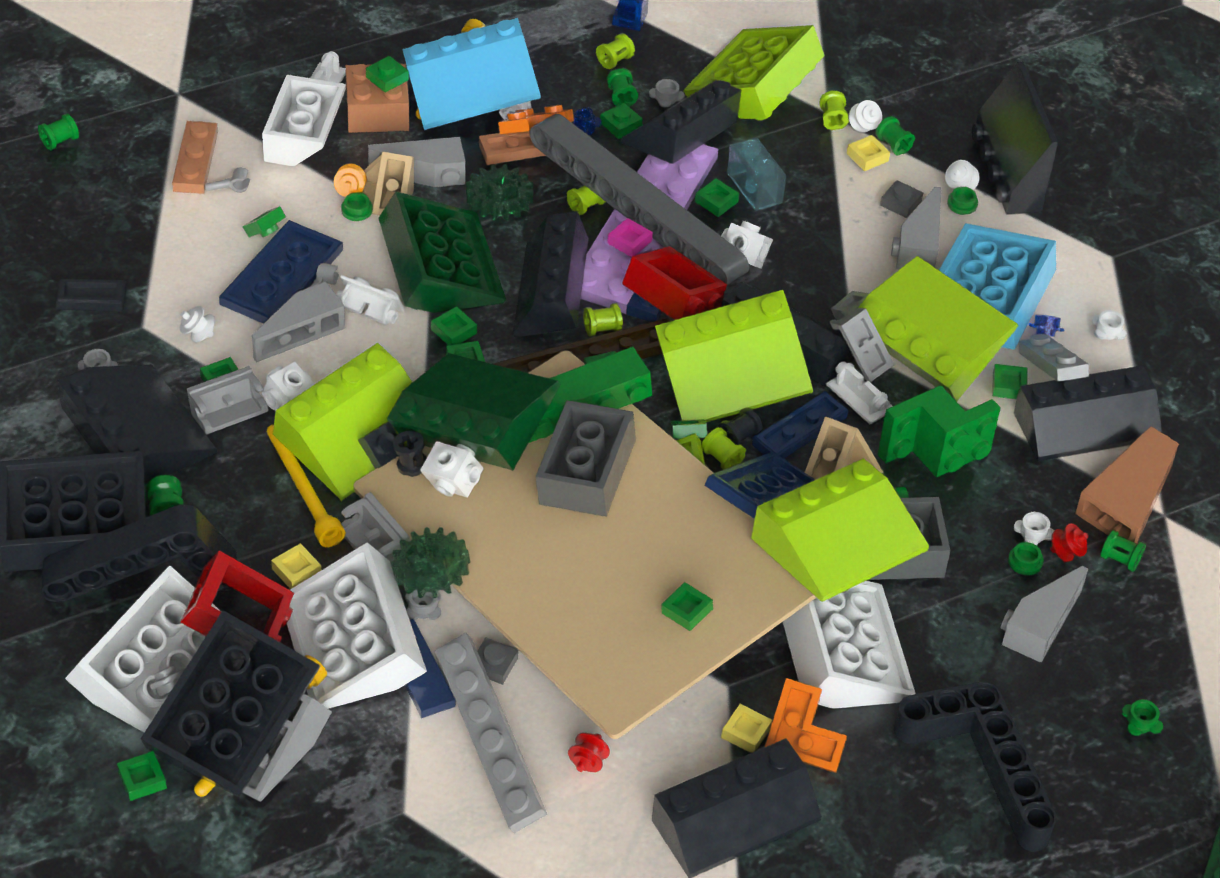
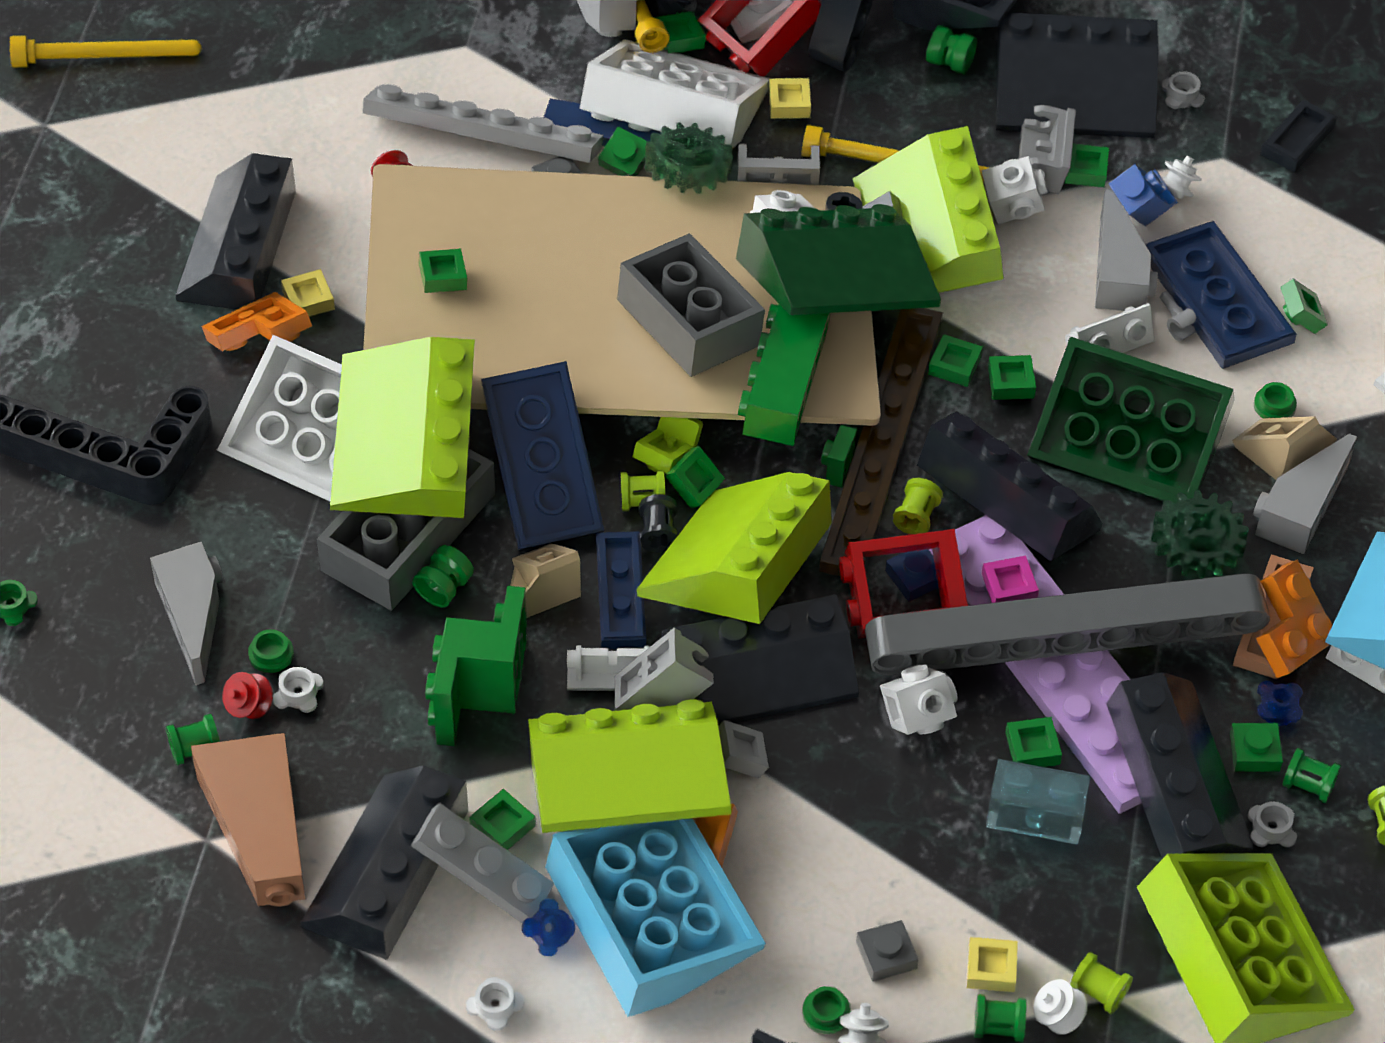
camera: 130 degrees right, 5 degrees up
(236, 325) = (1143, 194): none -> blue brick
(350, 179) = (1319, 406): light orange wheel -> none
(438, 627) = (623, 153): none -> green plate
(920, 232) = (793, 899): light grey slope -> none

